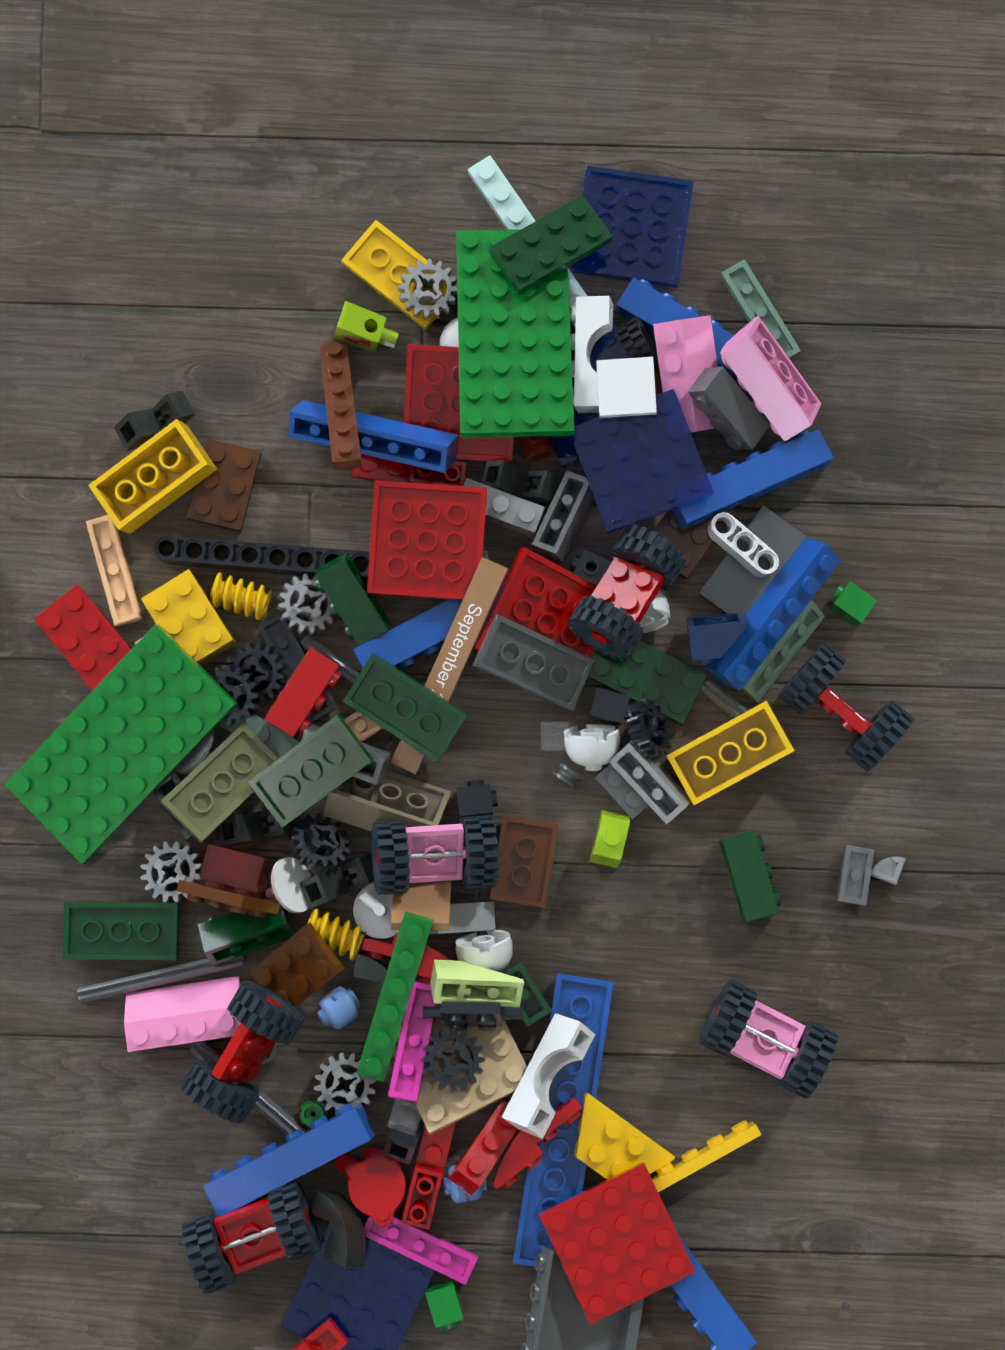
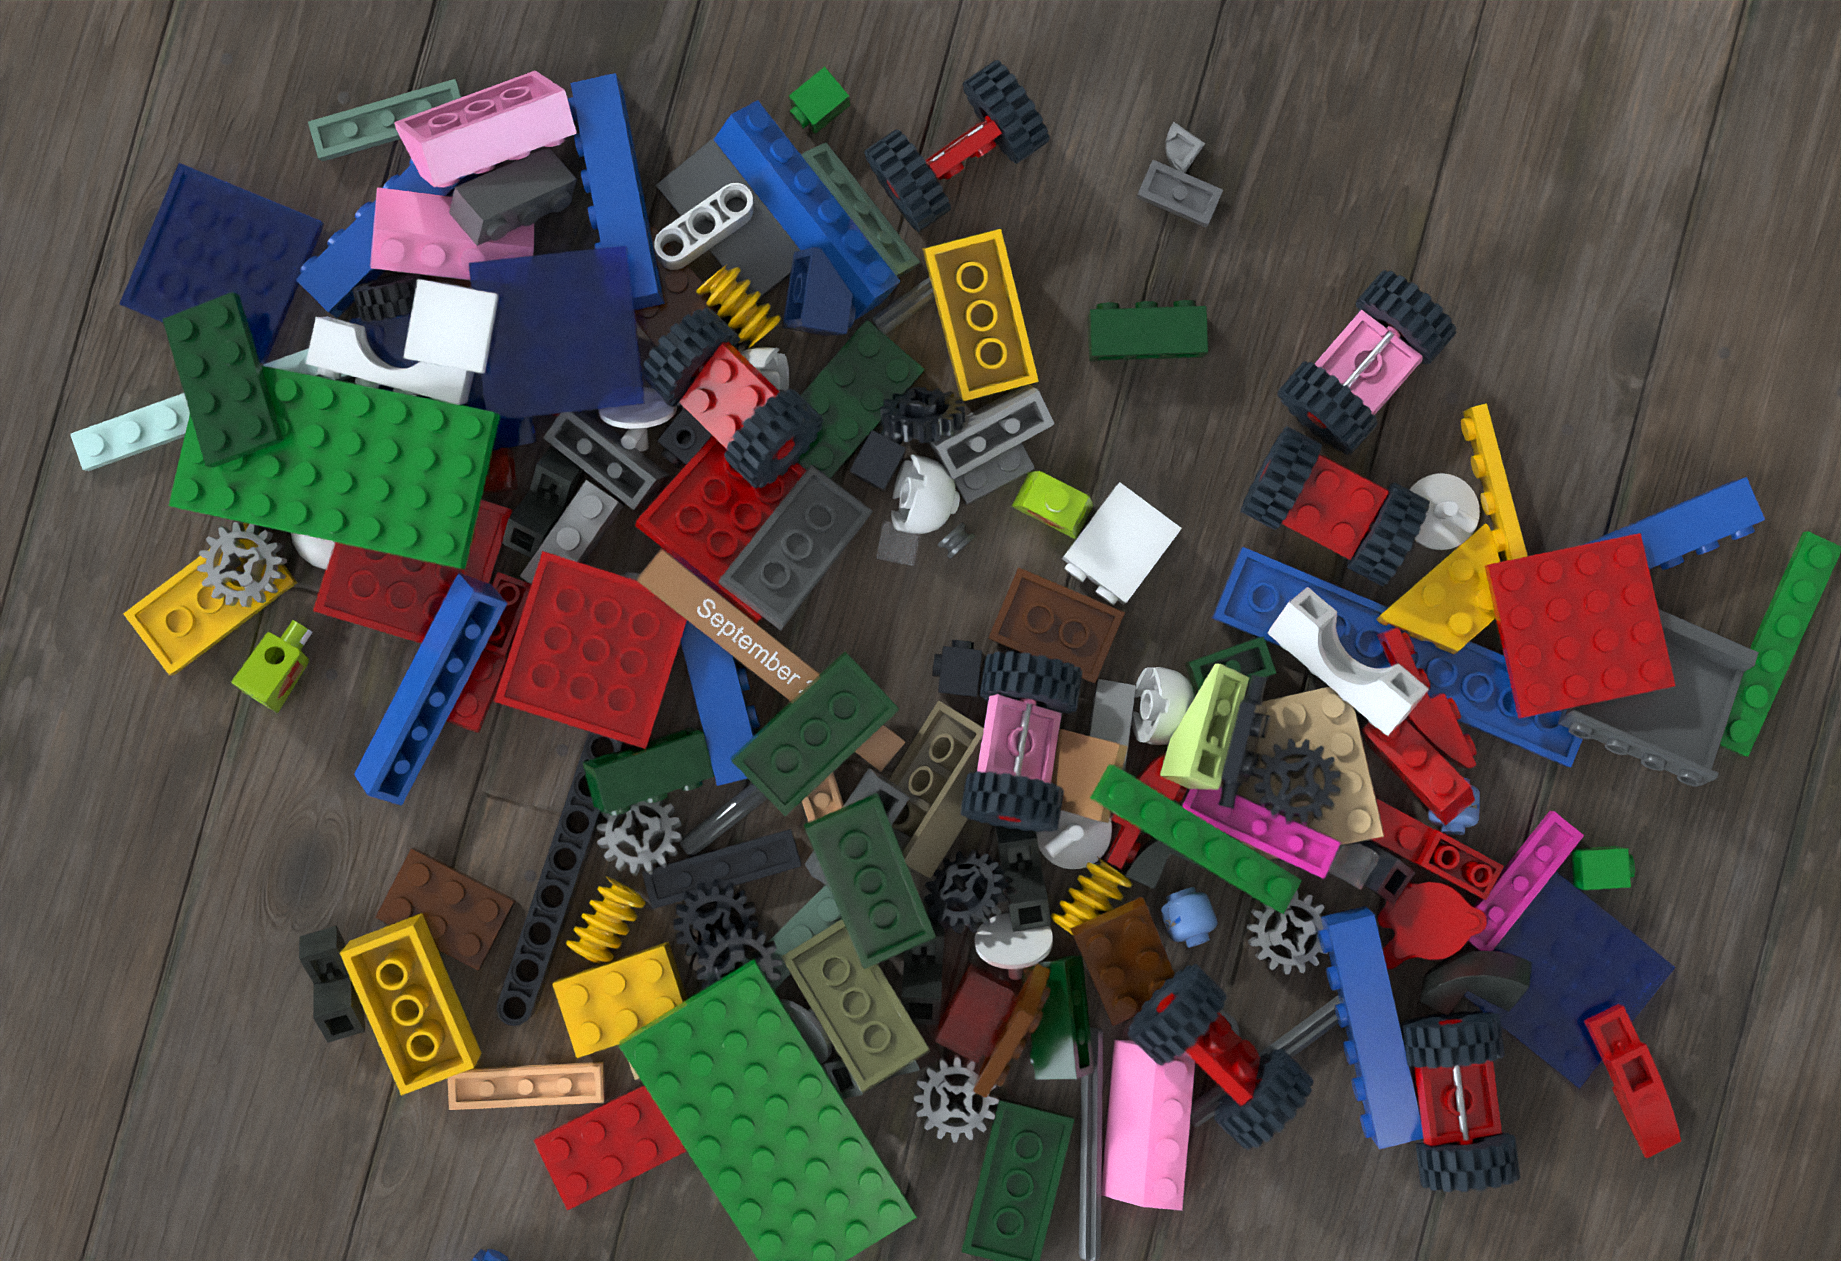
camera: 80 degrees left, 5 degrees up
(304, 693) = (762, 865): red brick -> none
(309, 1106) = (1307, 987): green plate -> none
(340, 406) = (378, 724): copper plate -> none
(592, 893) = (1120, 545): none -> white brick
(596, 533) = (638, 418): none -> white shield
(658, 1041) = (1335, 506): none -> plate
(675, 1122) = (1451, 512): none -> white shield
(693, 582) = (738, 305): none -> yellow piece

